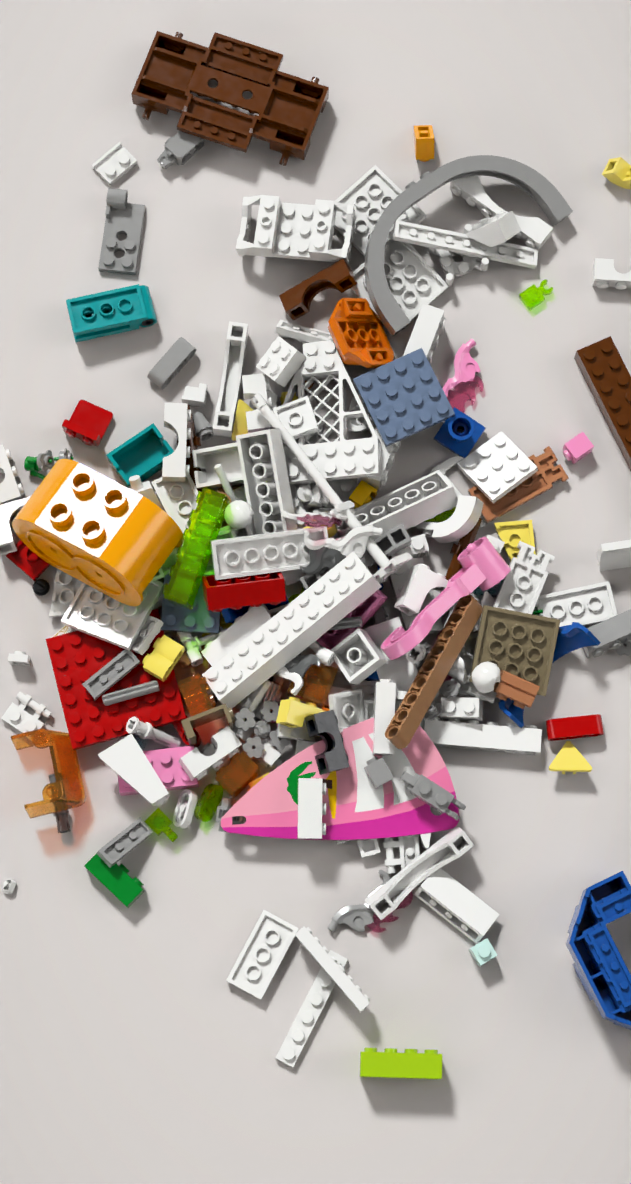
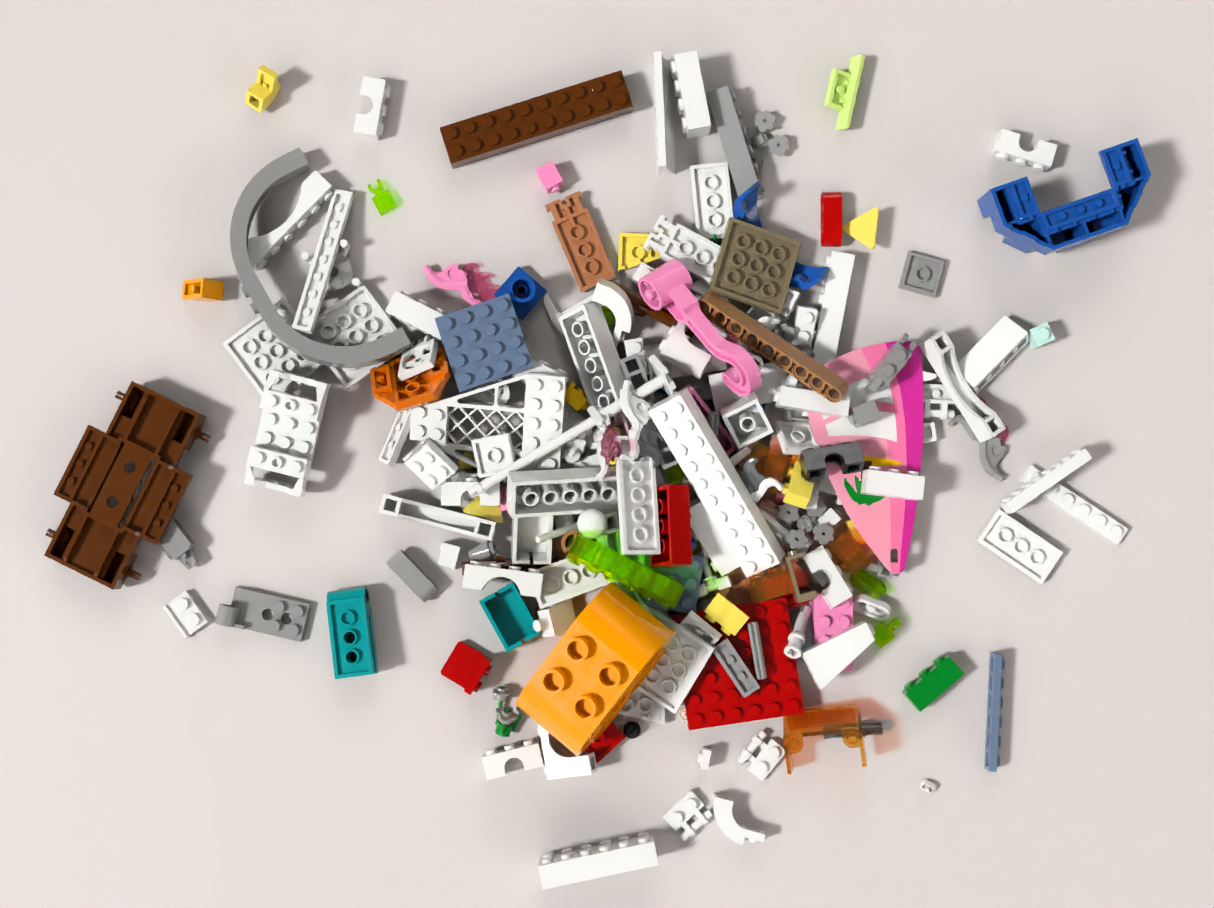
camera: 85 degrees left, 10 degrees up
(83, 944) = (994, 720): none -> sand blue plate
(124, 842) = (901, 669): light grey plate -> none
(298, 299) = (360, 439): reddish brown arch -> none
(326, 656) = (745, 452): white piece -> none
(380, 345) = (418, 349): none -> white piece
(400, 1065) = (1139, 426): lime brick -> none
(485, 676) = (781, 296): white hair -> none
(495, 229) = (312, 228): white slope -> none
(497, 467) = (561, 259): white plate -> none
(516, 689) = (794, 269): nougat brick -> none
(531, 826) = (921, 274): none -> light grey tile

